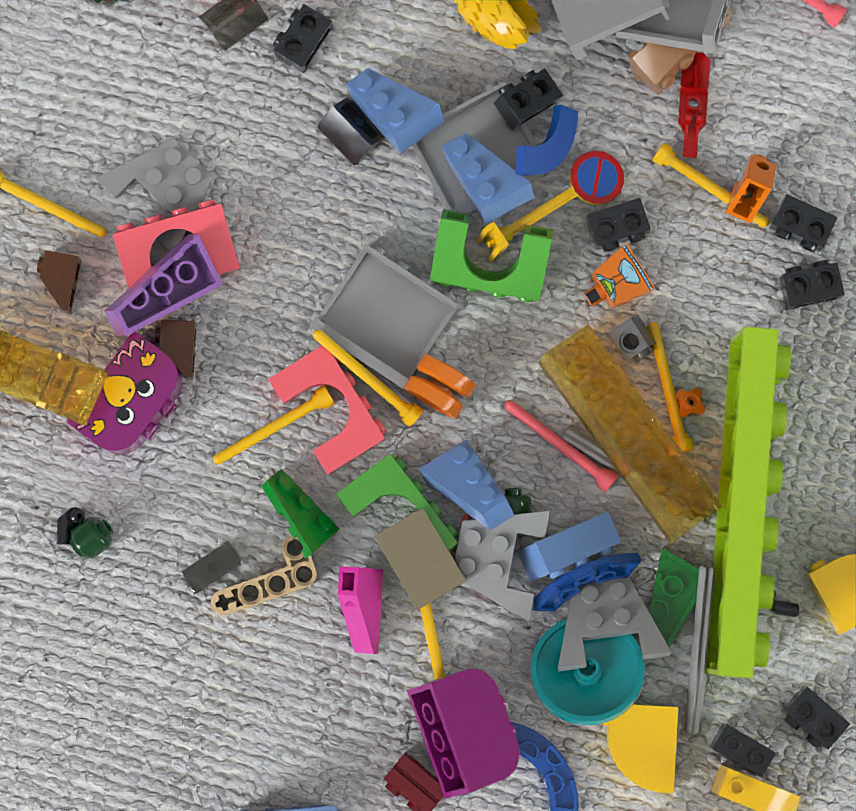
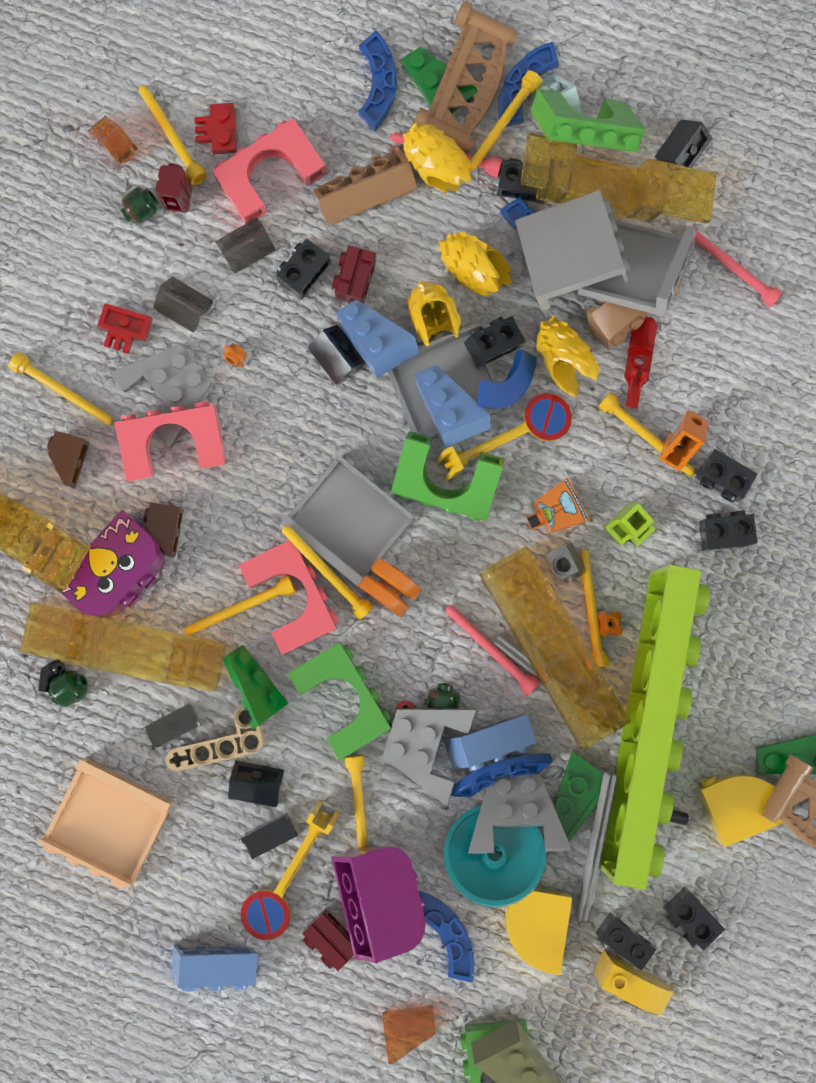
camera: 10 degrees right, 0 degrees up
(106, 124) = (123, 326): none -> red hinge
(147, 484) = (123, 648): none -> clear yellow bracket
(151, 682) = (106, 823): none -> light nougat panel
(167, 286) = (158, 473): medium lavender wedge -> none
(169, 91) = (181, 303): none -> clear smoke panel
(236, 144) = (234, 355): none -> orange plate
(312, 622) = (255, 783): none -> black panel
(334, 678) = (269, 835): none -> black panel
(340, 761) = (266, 911): none -> piece
(361, 605) = (299, 773): dark pink slope -> none
(362, 38) = (355, 274): none -> dark red brick
(420, 558) = (355, 740): dark tan tile -> none
(454, 72) = (432, 311): none -> yellow head
(468, 484) = (405, 677): medium blue wedge -> none
(608, 105) = (565, 352): none -> yellow head
(615, 218) = (560, 454): black brick -> none
(700, 288) = (630, 523): none -> lime brick

